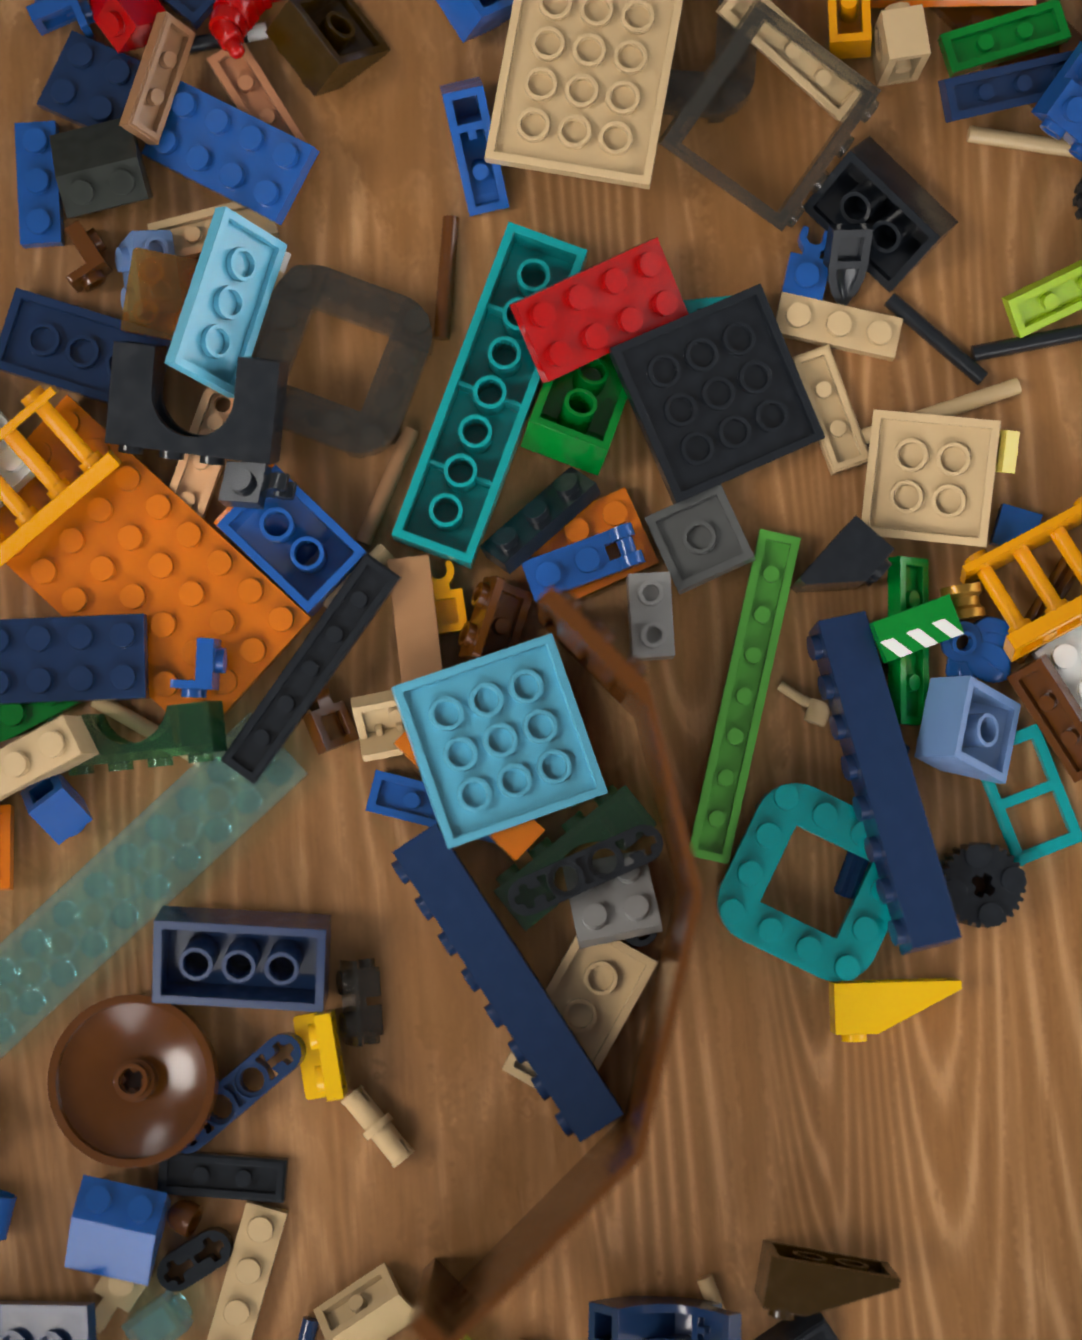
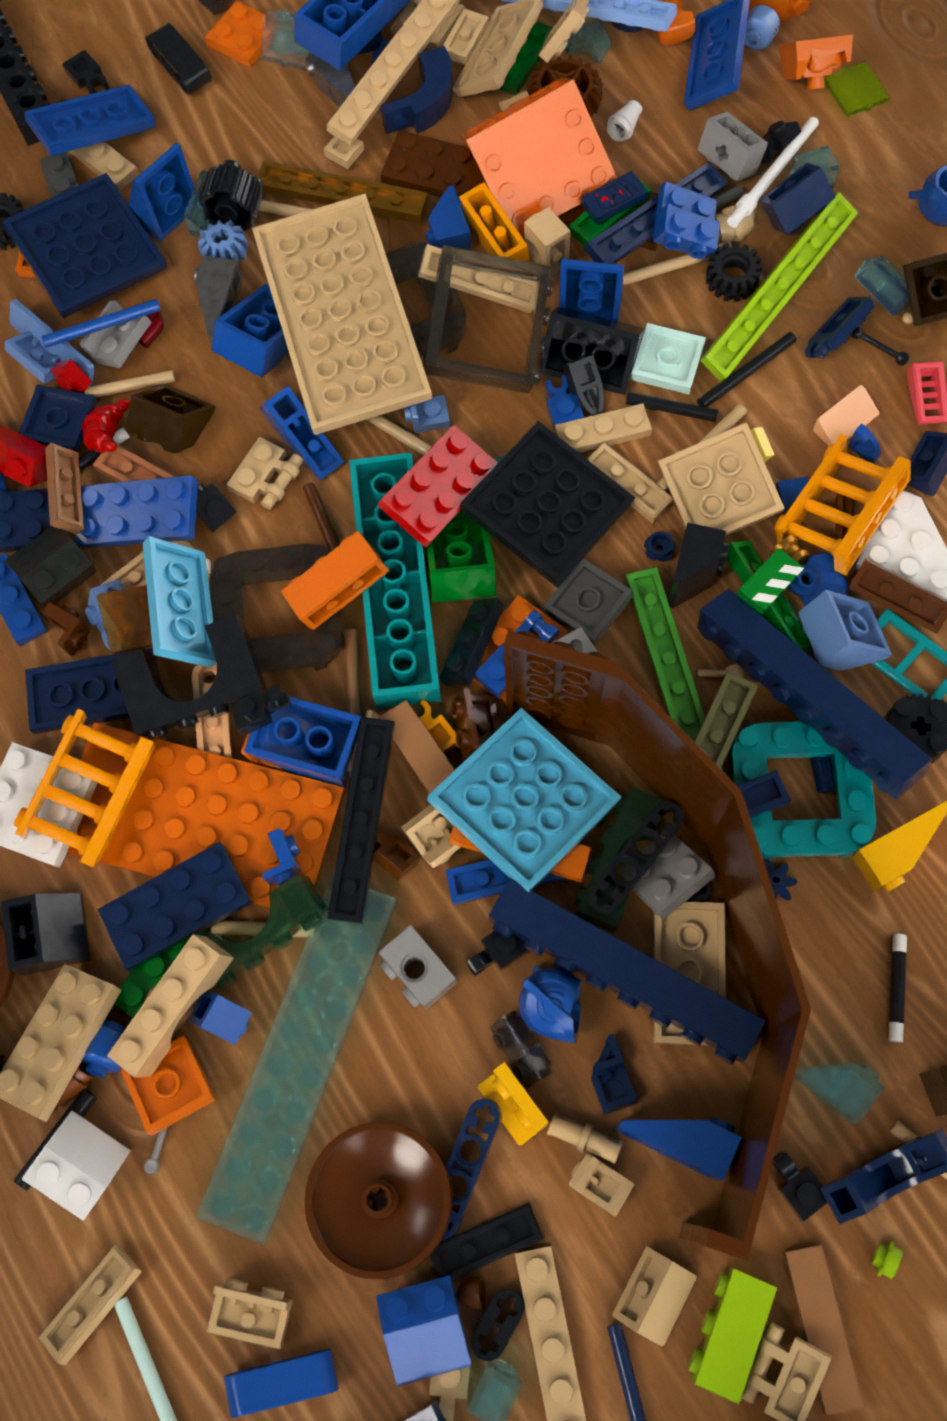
camera: 20 degrees left, 15 degrees down
(241, 958) = (415, 1058): dark blue brick -> none
(299, 836) = (411, 948): none -> light grey brick
(324, 188) = (212, 506): none -> black bracket
(368, 1181) = (600, 1184): none -> tan bracket
(387, 885) = (499, 951): none -> black plate
(399, 165) = (258, 468): none -> tan plate
(414, 974) = (551, 1003): none -> blue helmet
(415, 372) = (334, 580): none -> orange brick
(438, 1081) = (611, 1079): none -> dark blue slope
(479, 1189) = (697, 1144): none -> blue slope
(571, 1288) = (800, 1187): none -> black plate
(599, 215) = (400, 434): none -> tan bar
(641, 202) = (428, 415): none -> medium blue bracket
(673, 1215) = (843, 1087): none -> clear light blue slope
(721, 958) = (782, 881): none -> dark blue plant
(748, 869) = (764, 794): none -> dark blue tile
(752, 777) = (725, 717): none -> olive plate
(792, 1143) = (897, 988): none -> black bar
(817, 501) = (659, 539): none -> dark blue plate
(919, 140) = (591, 288): none -> blue slope
(966, 274) = (668, 358): none -> light aqua plate
(1016, 26) = (614, 197): none -> dark blue tile

